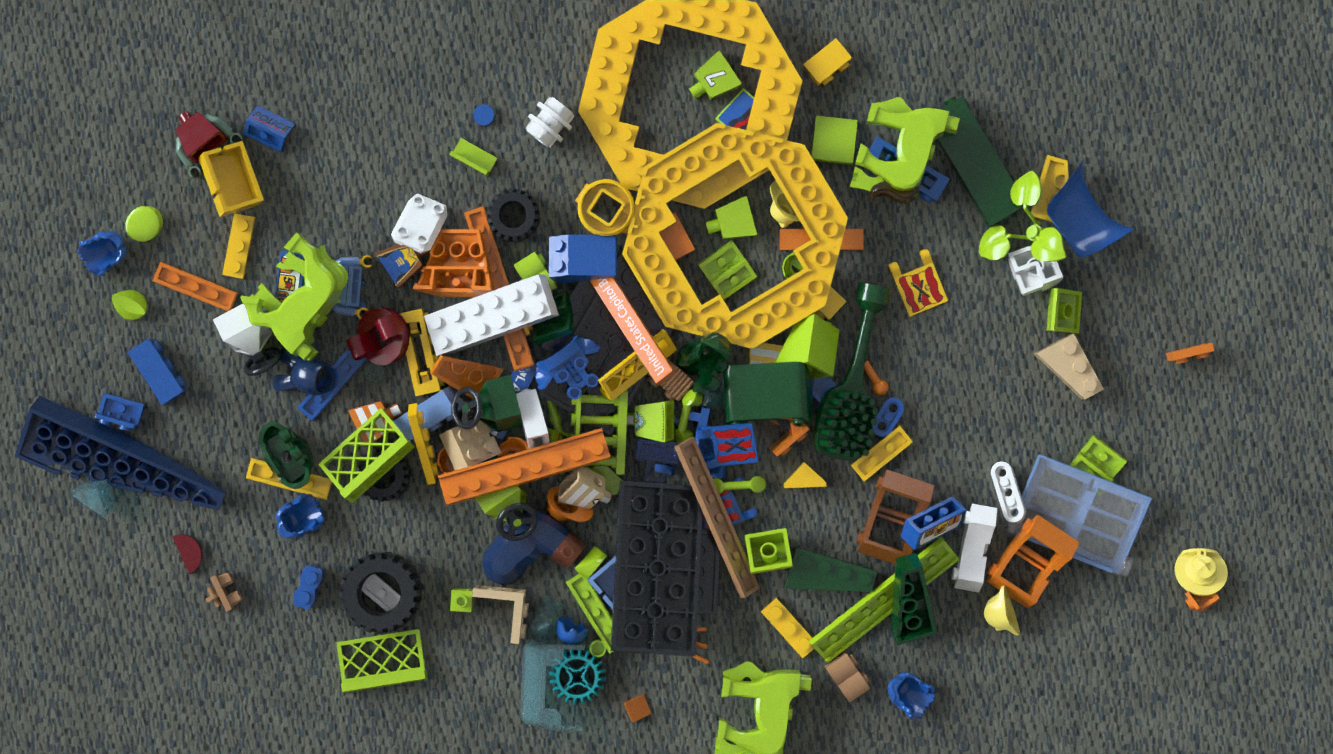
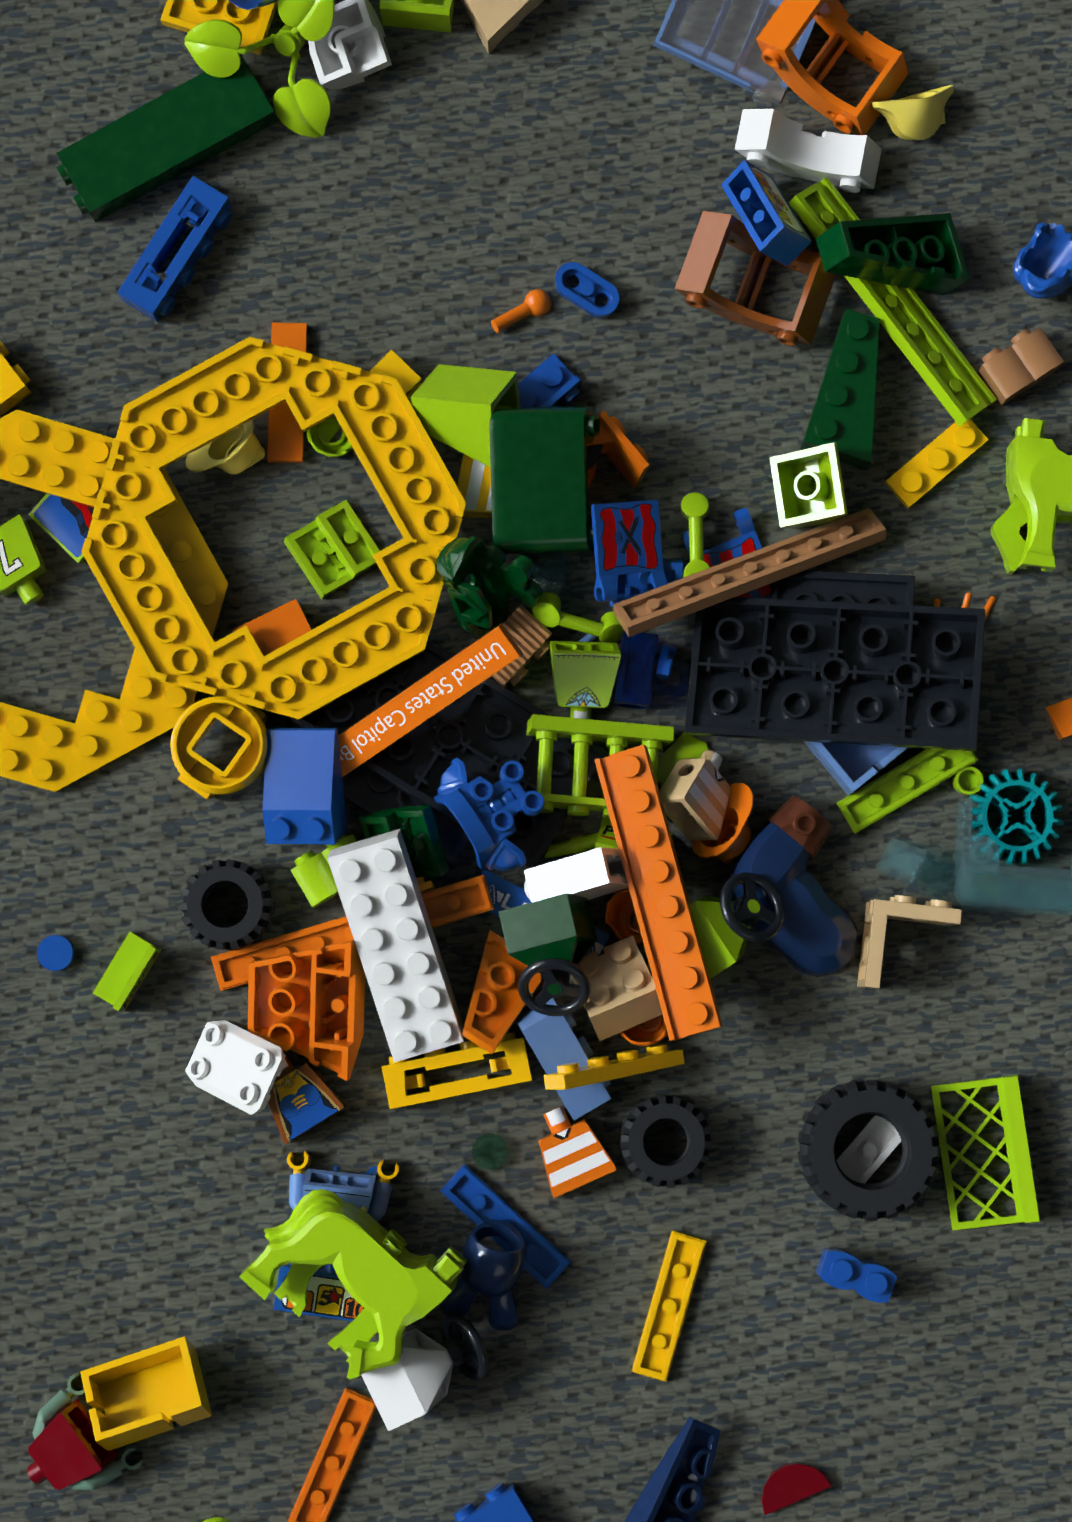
camera: 85 degrees left, 5 degrees down
(220, 583) = (877, 1418): medium nougat hips -> none
(239, 246) = (264, 1383): yellow plate -> none
(268, 128) = (63, 1327): blue panel -> none
(277, 439) = (602, 1327): dark green piece -> none
(299, 516) = (735, 1288): blue hair -> none
(374, 470) = (658, 1153): lime fence -> none
(391, 328) = (415, 1116): dark red piece -> none
(462, 600) = (883, 1009): lime brick -> none
(549, 122) = (68, 836): white piece -> none
(569, 632) = (941, 826): blue hair -> none
(590, 562) = (822, 787): lime piece -> none
(635, 371) = (497, 708): yellow fence -> none
(701, 417) = (580, 596): blue tile -> none
(733, 220) = (250, 534): lime torso -> none
(804, 477) = (684, 428): yellow slope -> none
(834, 140) = (121, 365): lime slope -> none
(847, 410) = (569, 353): dark green piece -> none
(881, 453) = (647, 301): yellow plate -> none
(918, 131) = (139, 228): lime piece -> none
(920, 287) = (372, 233): flag -> none
(1003, 484) = (700, 95): white plate -> none

